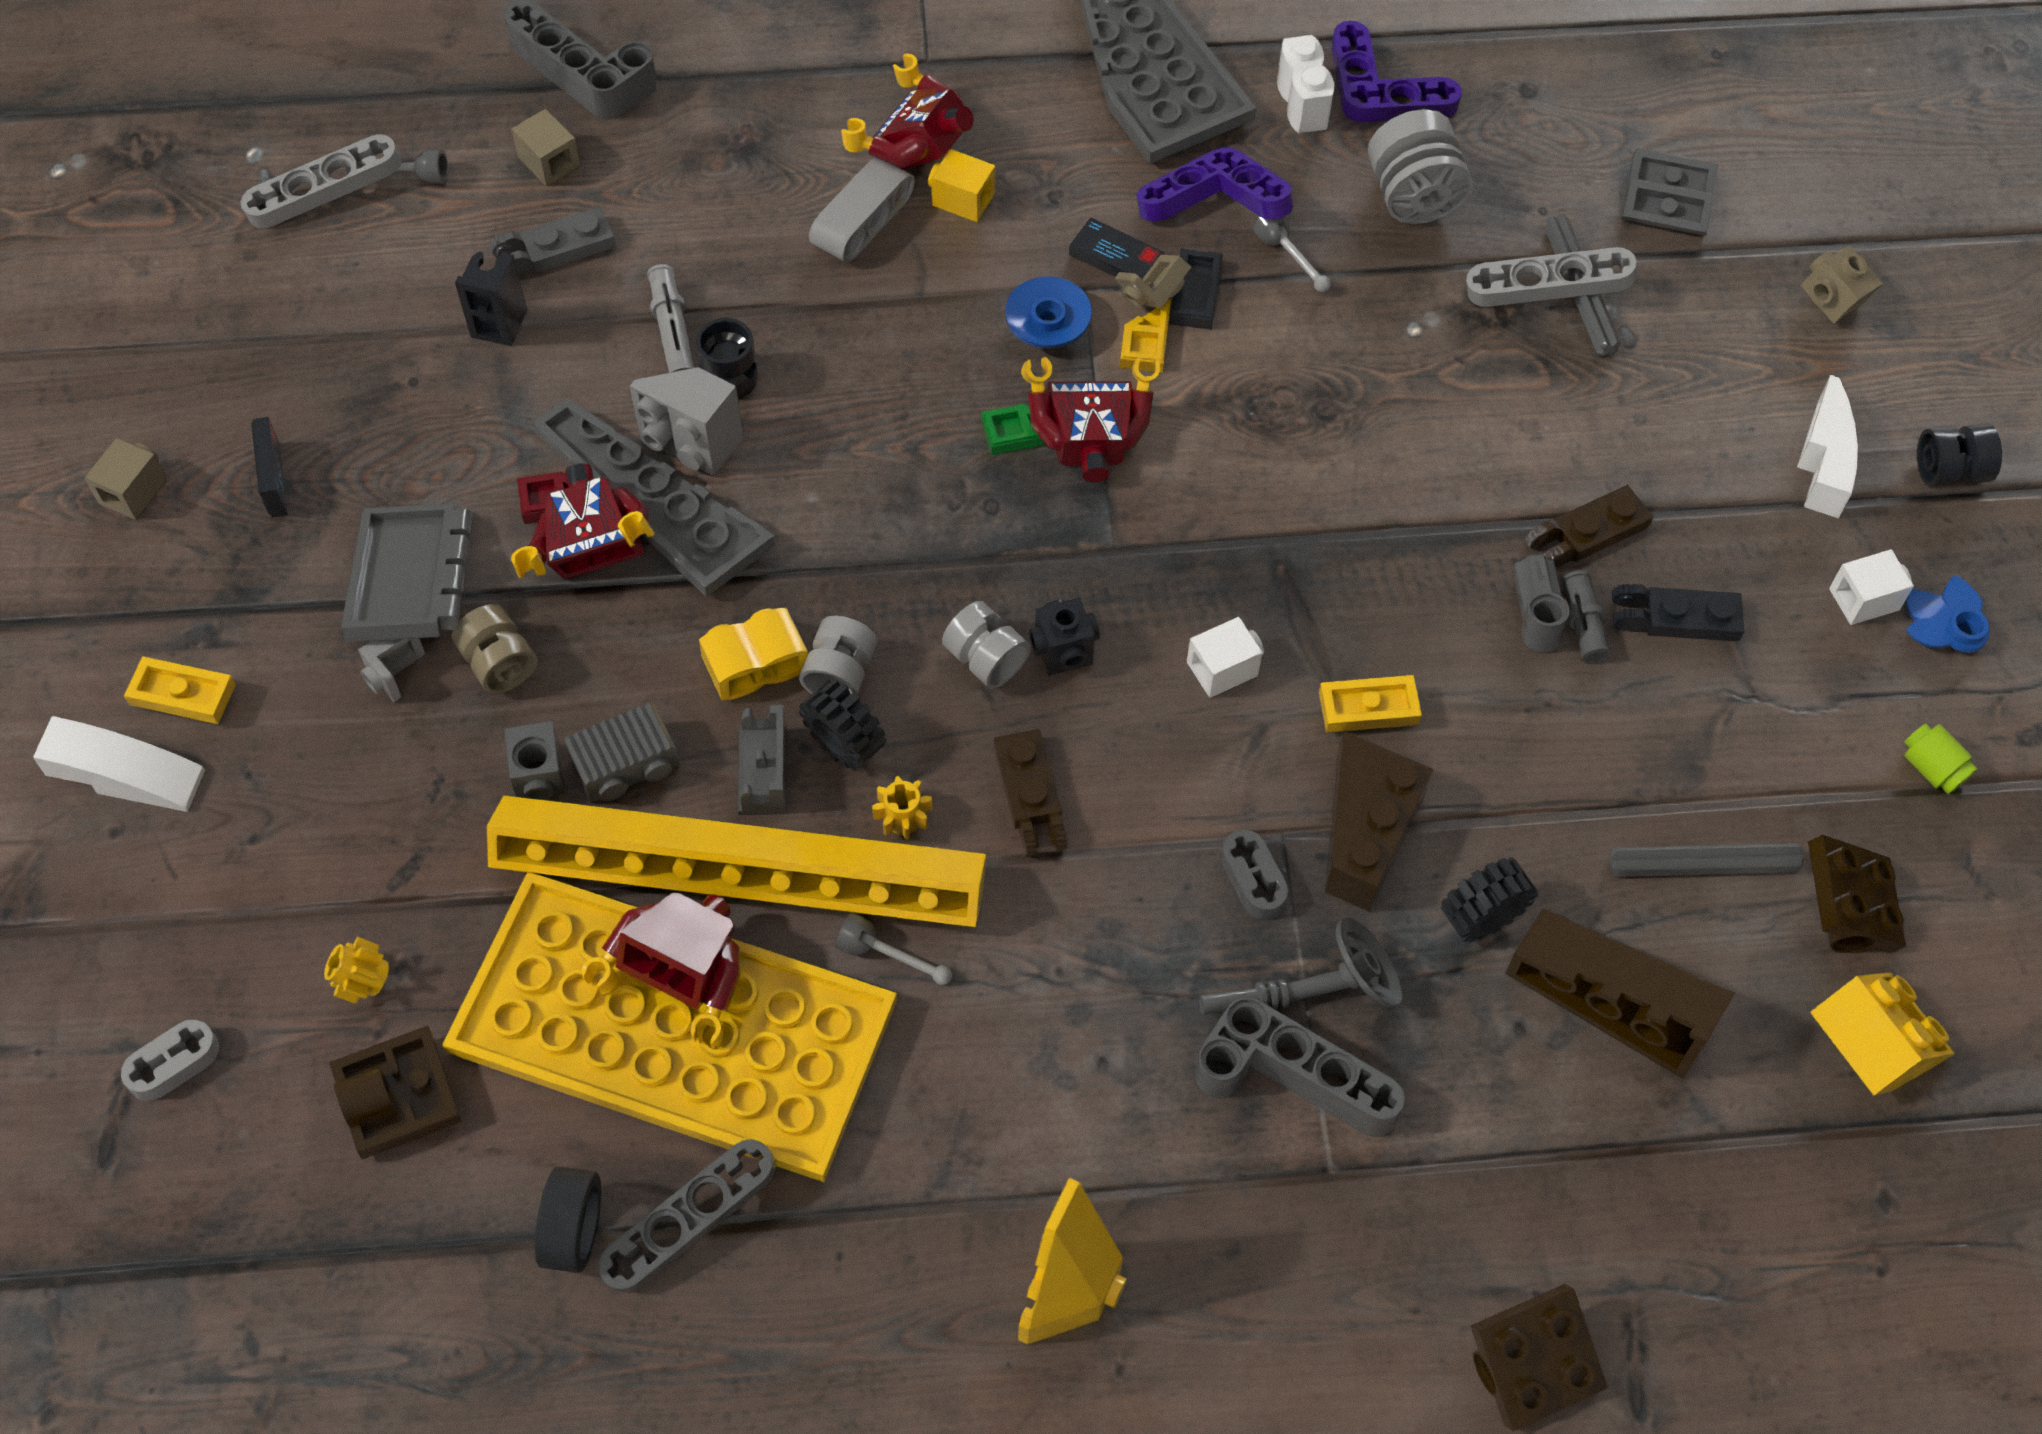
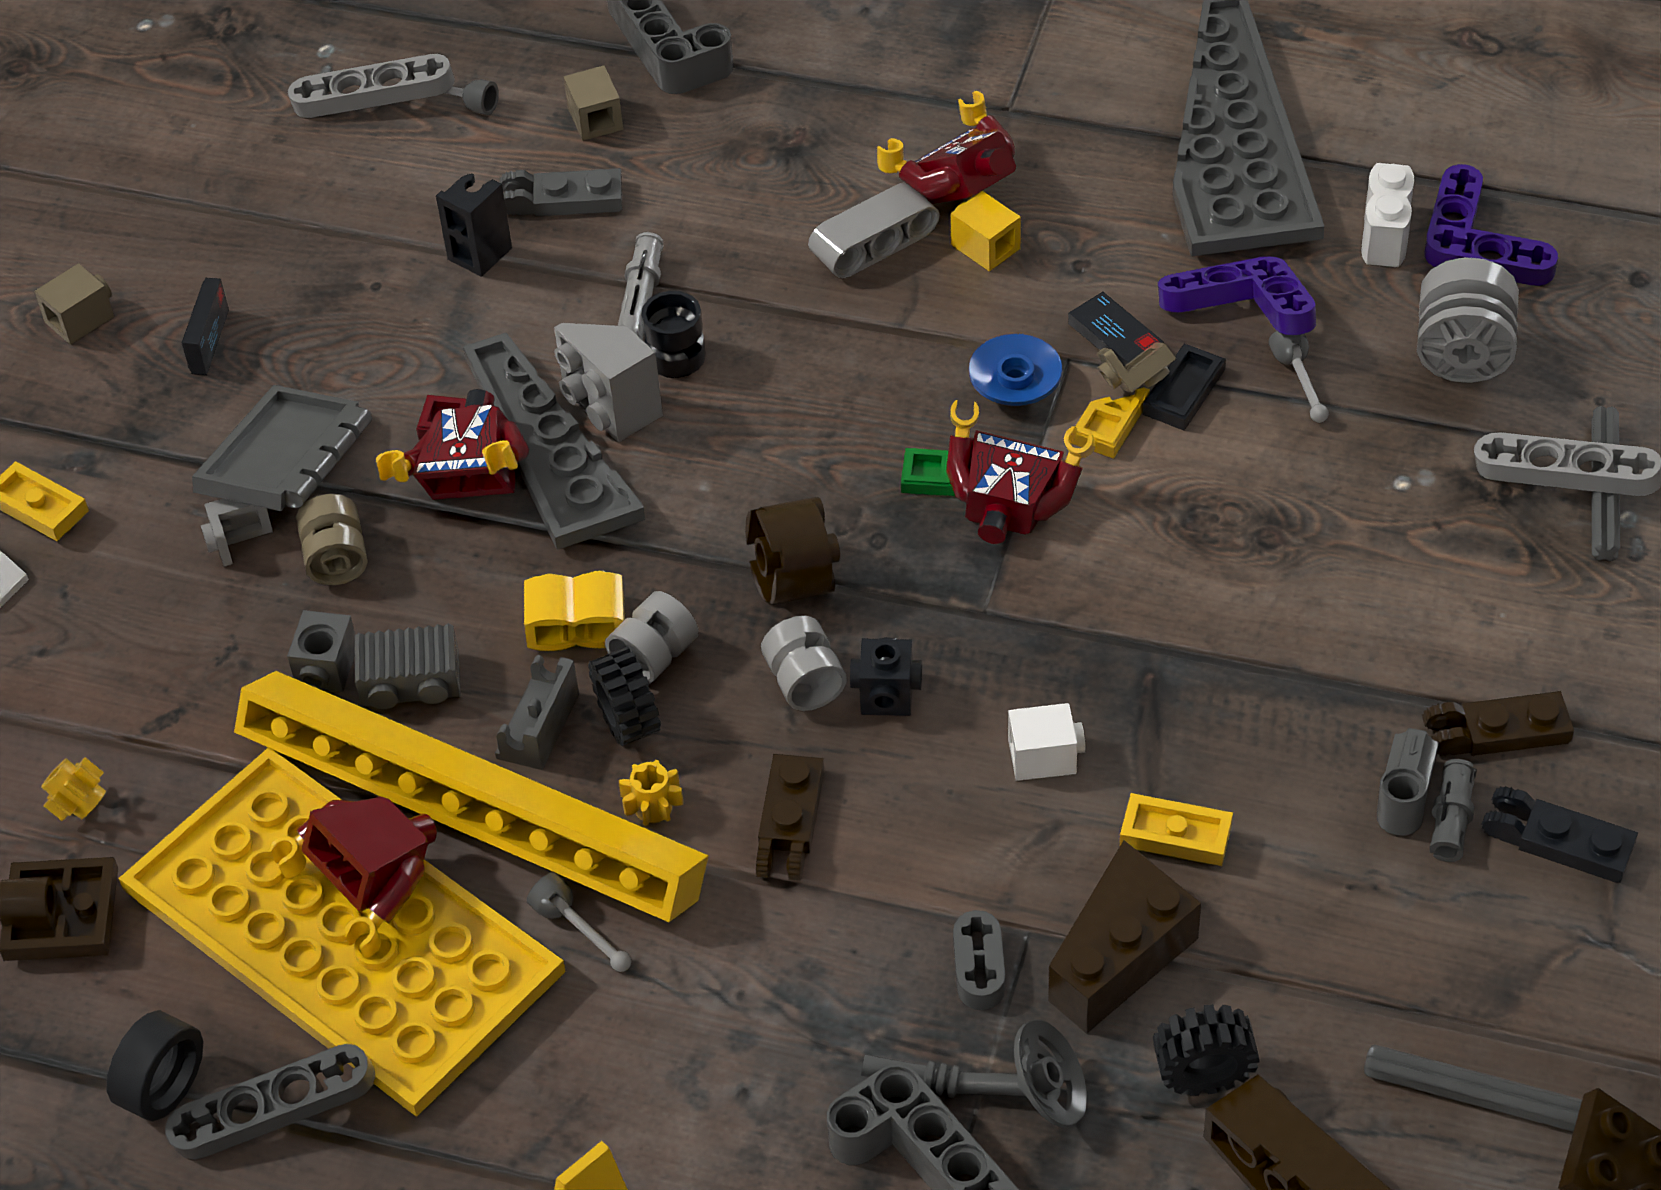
camera: 25 degrees right, 10 degrees down
(931, 541) = (792, 550): none -> dark brown brick

